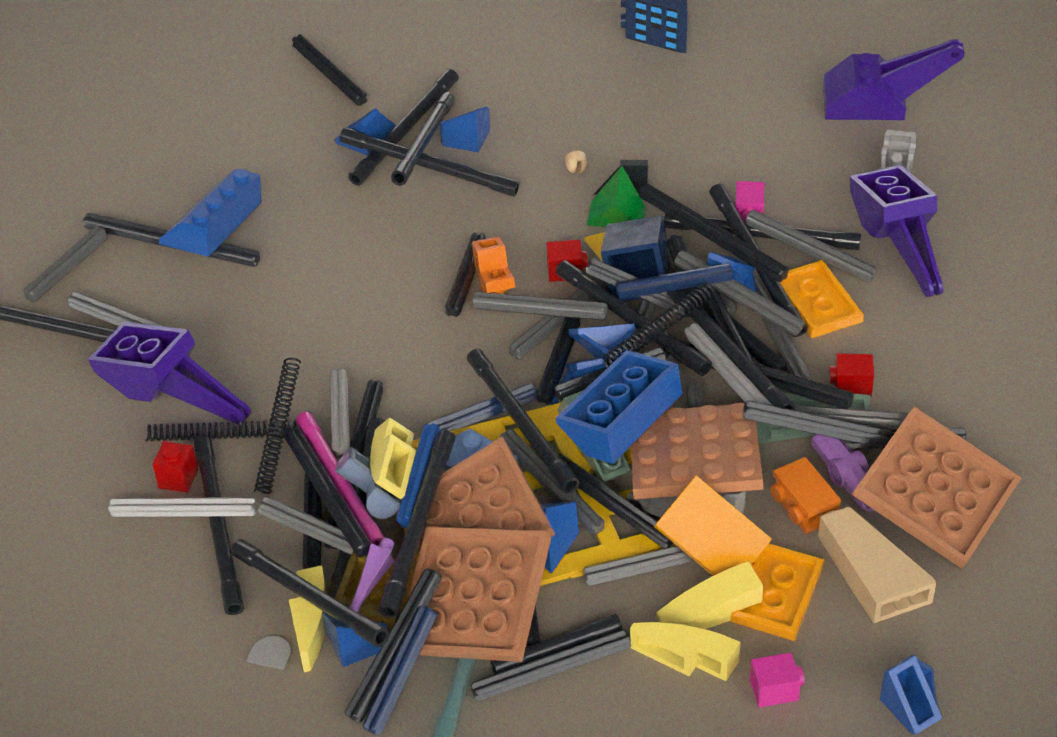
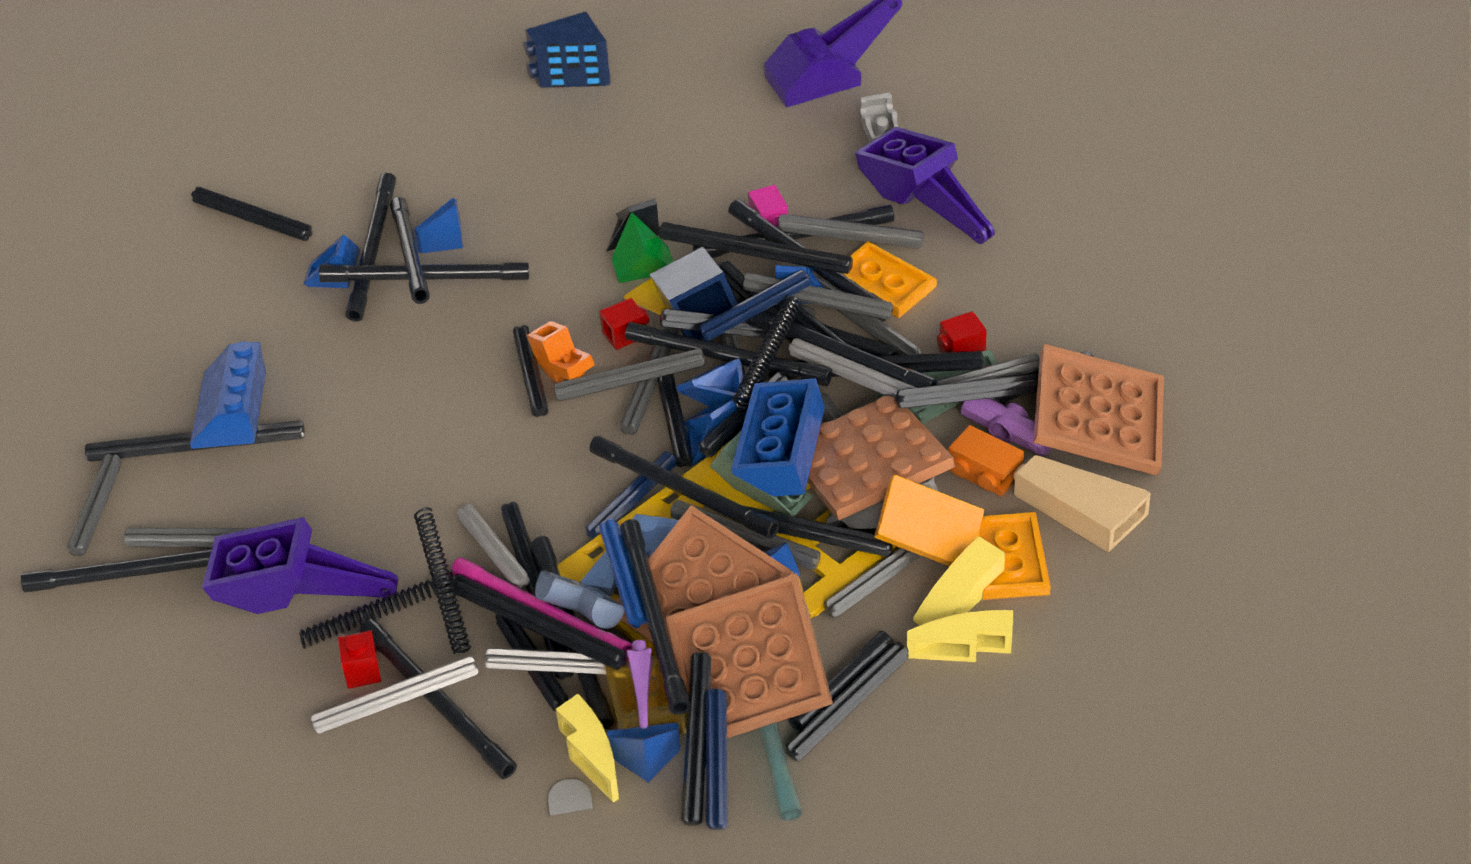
camera: 25 degrees left, 0 degrees up
(361, 625) = (670, 728): black piece -> none
(392, 457) = (586, 564): light yellow slope -> none
(576, 162) = (572, 225): tan hinge -> none
(775, 679) = (1058, 632): dark pink brick -> none
(911, 694) = (1181, 601): blue slope -> none

